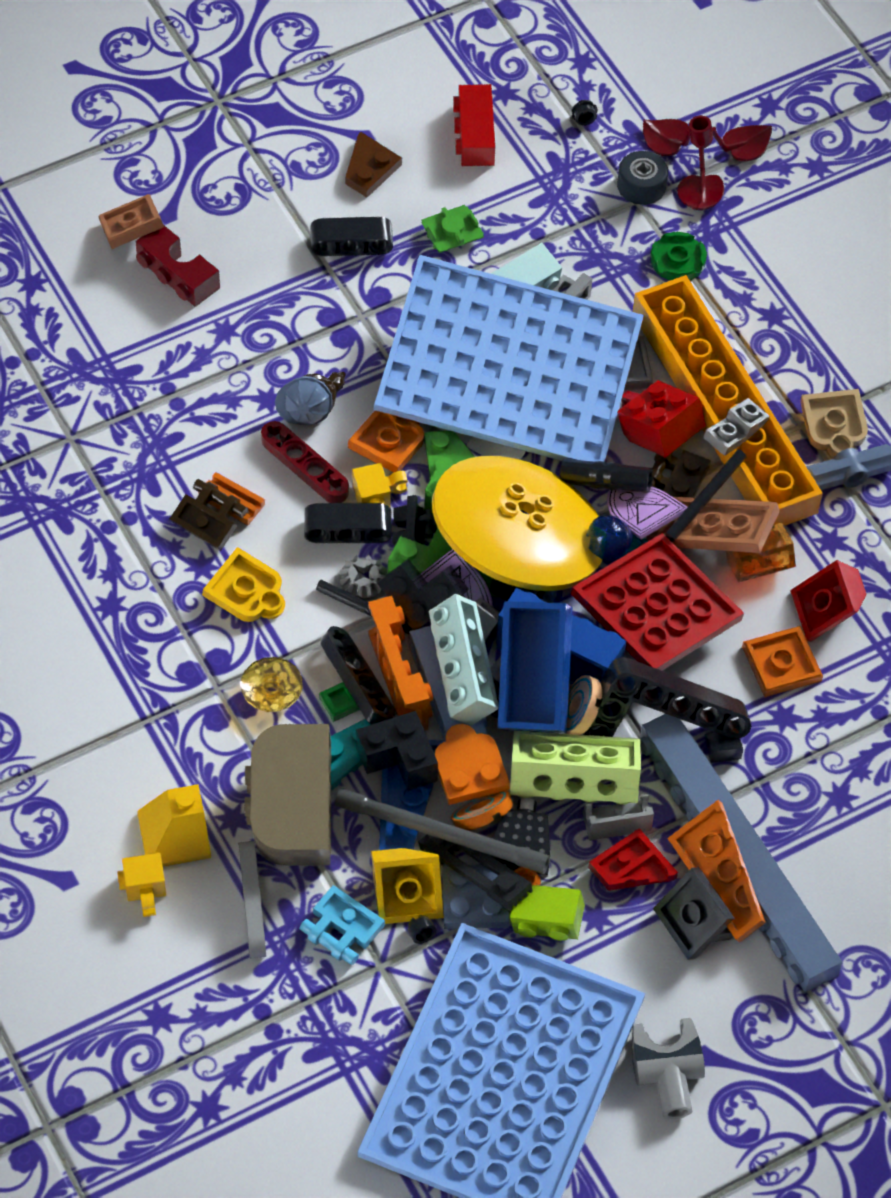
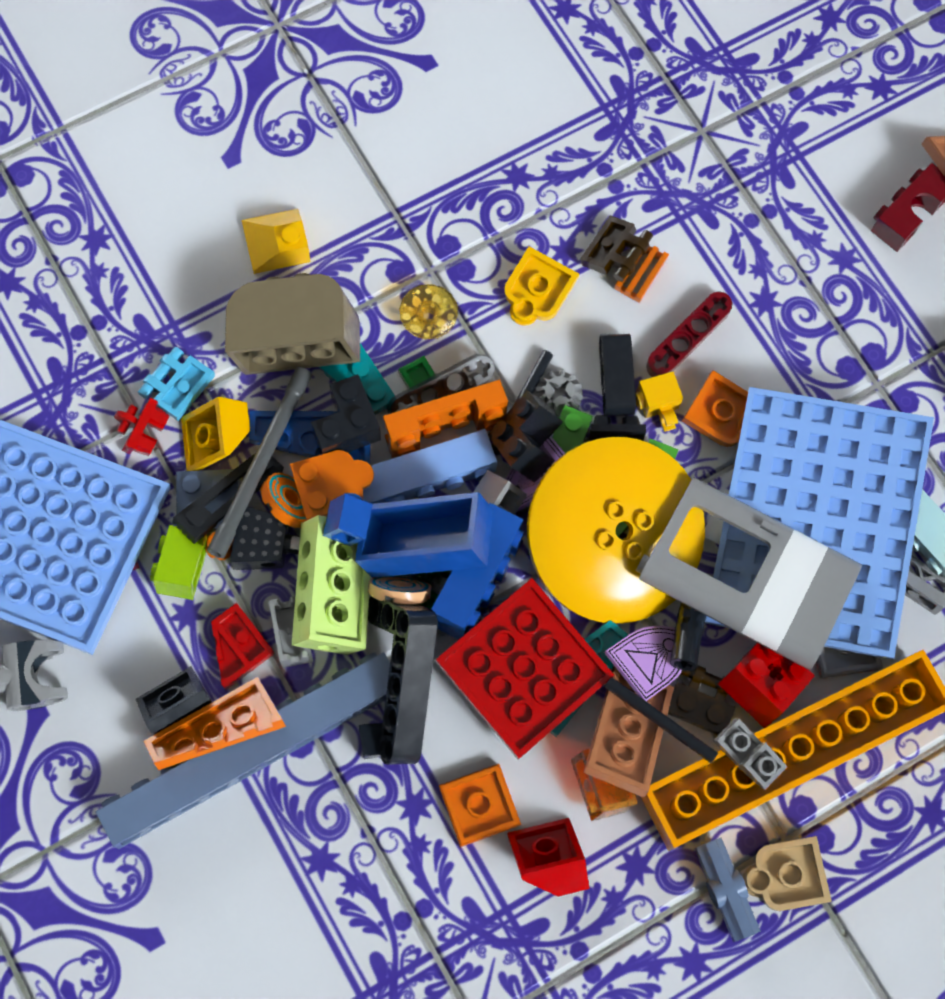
camera: 85 degrees right, 15 degrees up
(143, 880) = (222, 215): yellow brick -> none
(252, 899) = (188, 306): light grey beam -> none
(309, 398) = (762, 335): sand blue piece -> none
(393, 957) = (149, 416): none -> red hips
(421, 929) = (172, 451): black hinge -> none
(444, 450) = (709, 464): bright green wing -> none
(463, 660) = (440, 470): light aqua brick -> none
(516, 735) = (347, 519): none -> blue brick
(583, 374) = (792, 595): none -> light grey piece
(609, 538) = (604, 621): clear blue hair -> none

